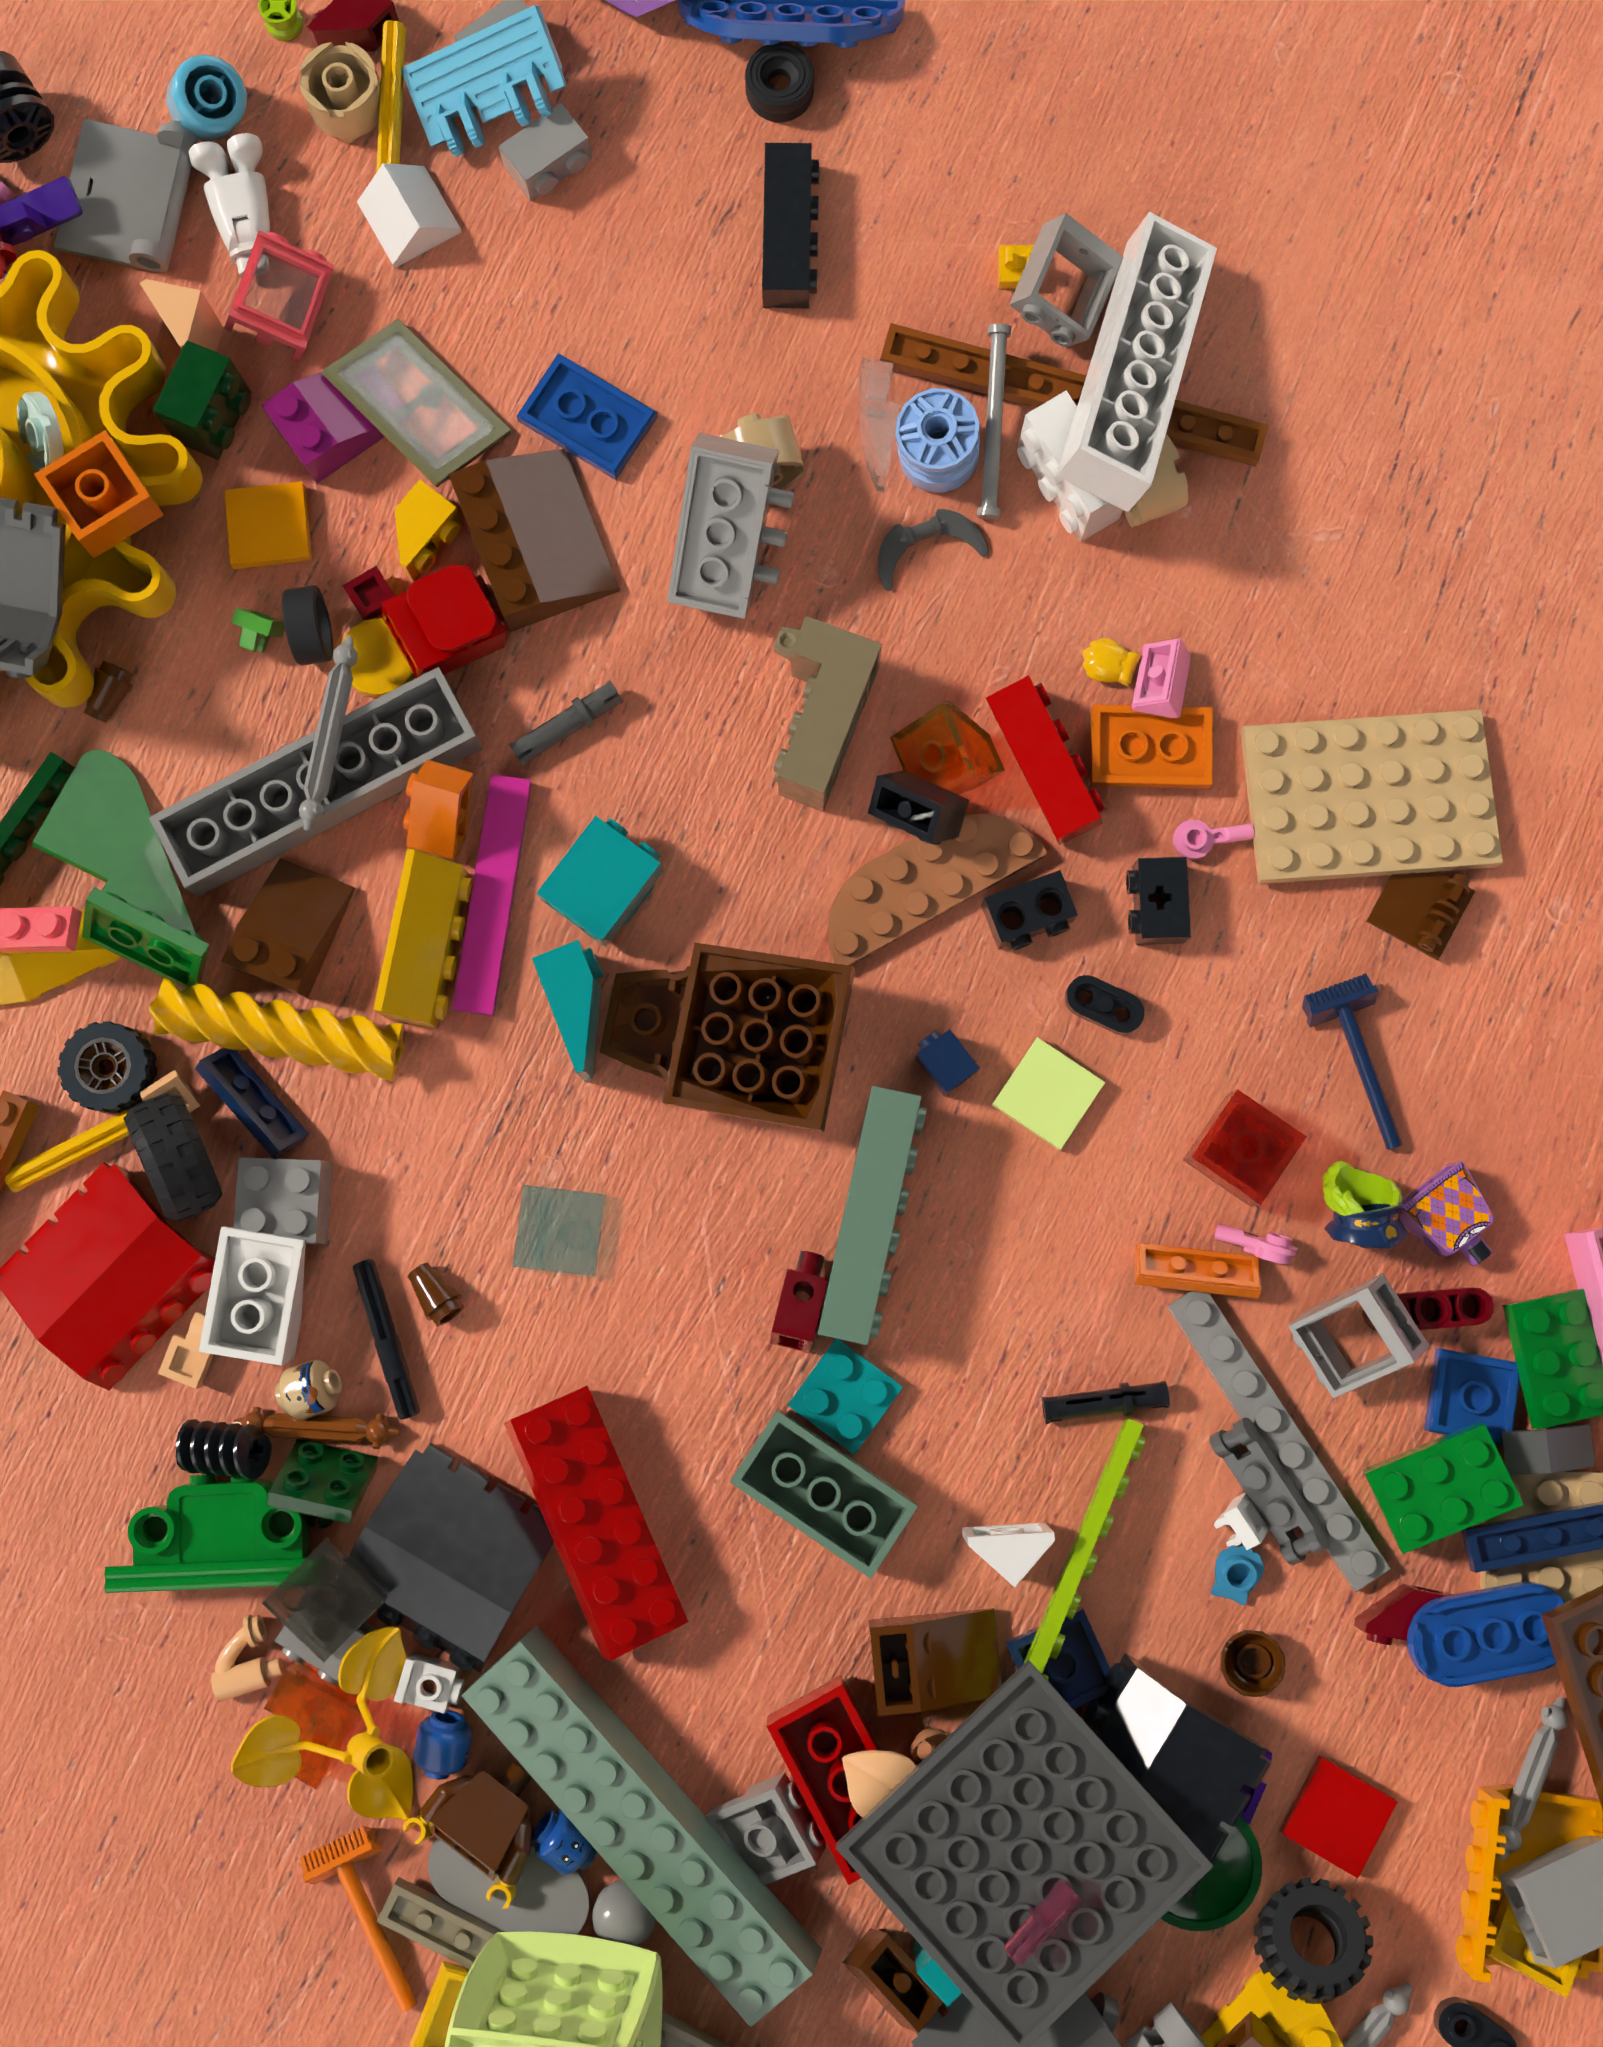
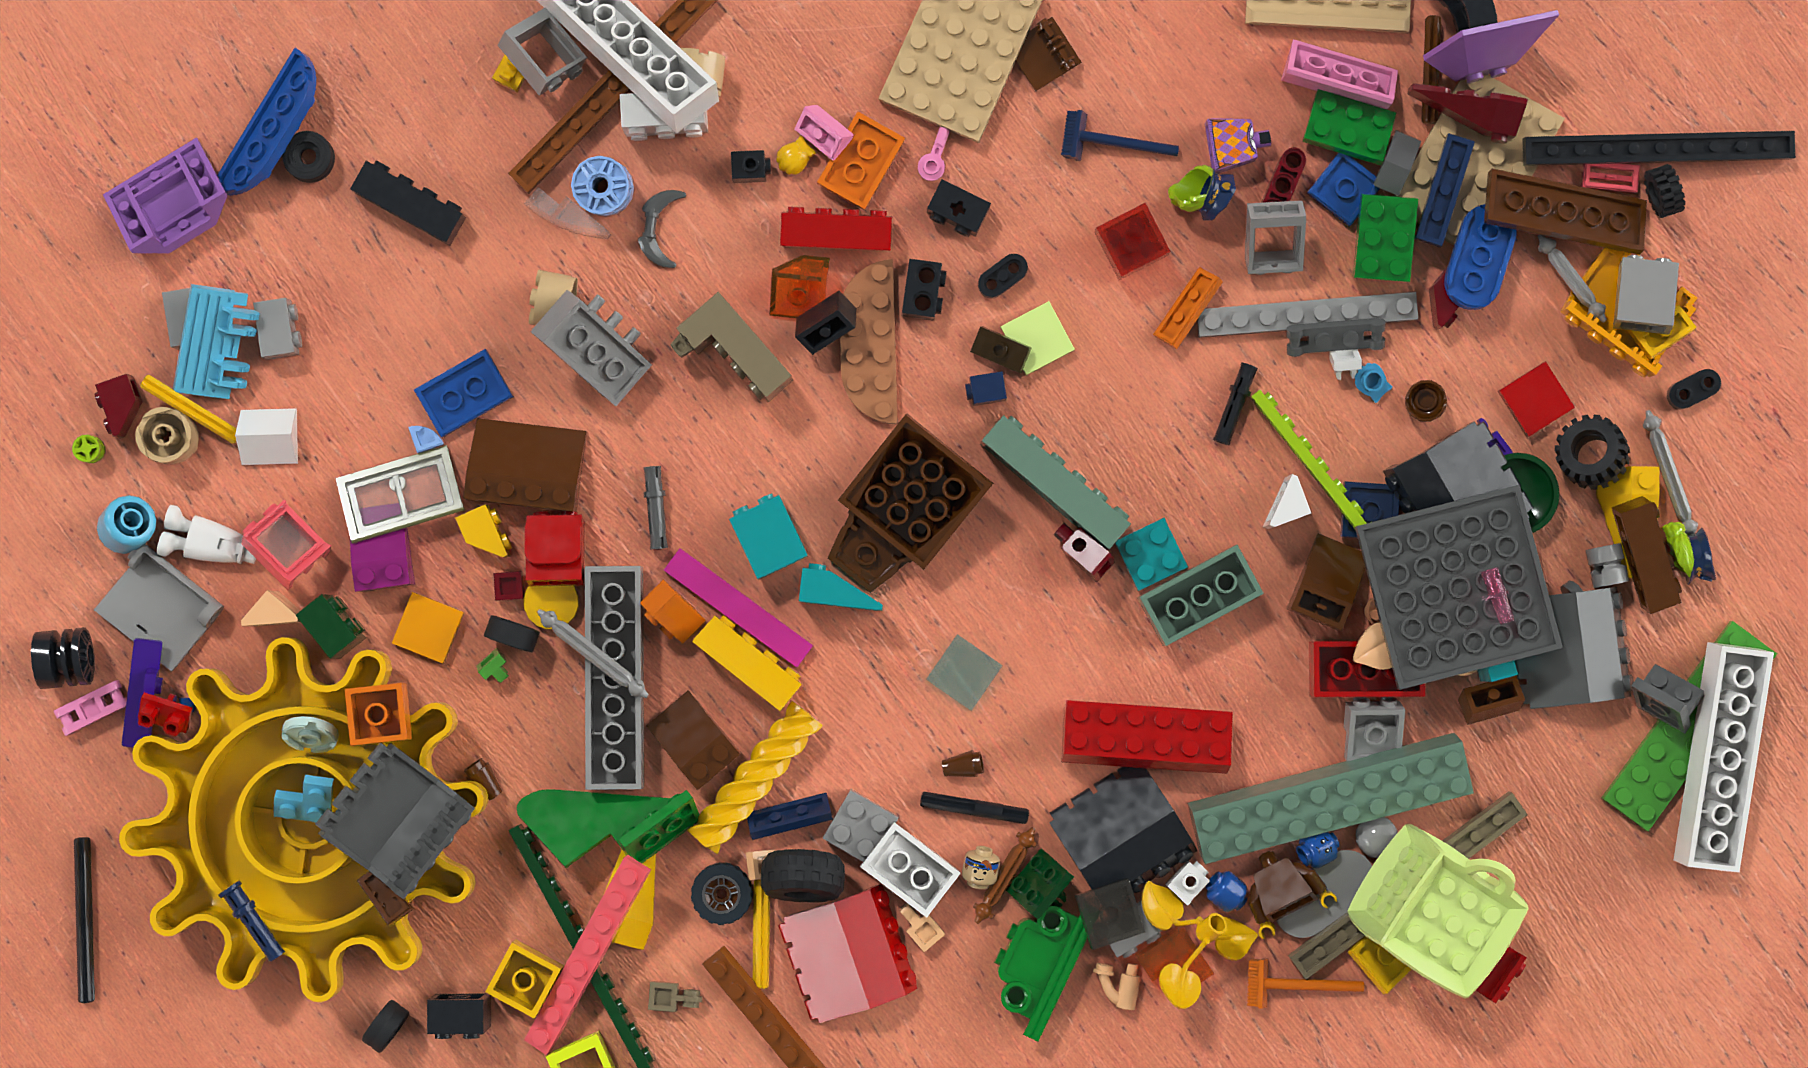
camera: 70 degrees left, 5 degrees up
(222, 1449) = (990, 935): black piece -> none
(504, 399) = (425, 438): none -> light blue tile
(999, 335) = (606, 144): light grey bar -> none
(1007, 1053) = (1001, 349): none -> dark brown plate
(1065, 611) = (749, 166): none -> black brick
(1273, 1248) = (1198, 257): bright pink plate -> none

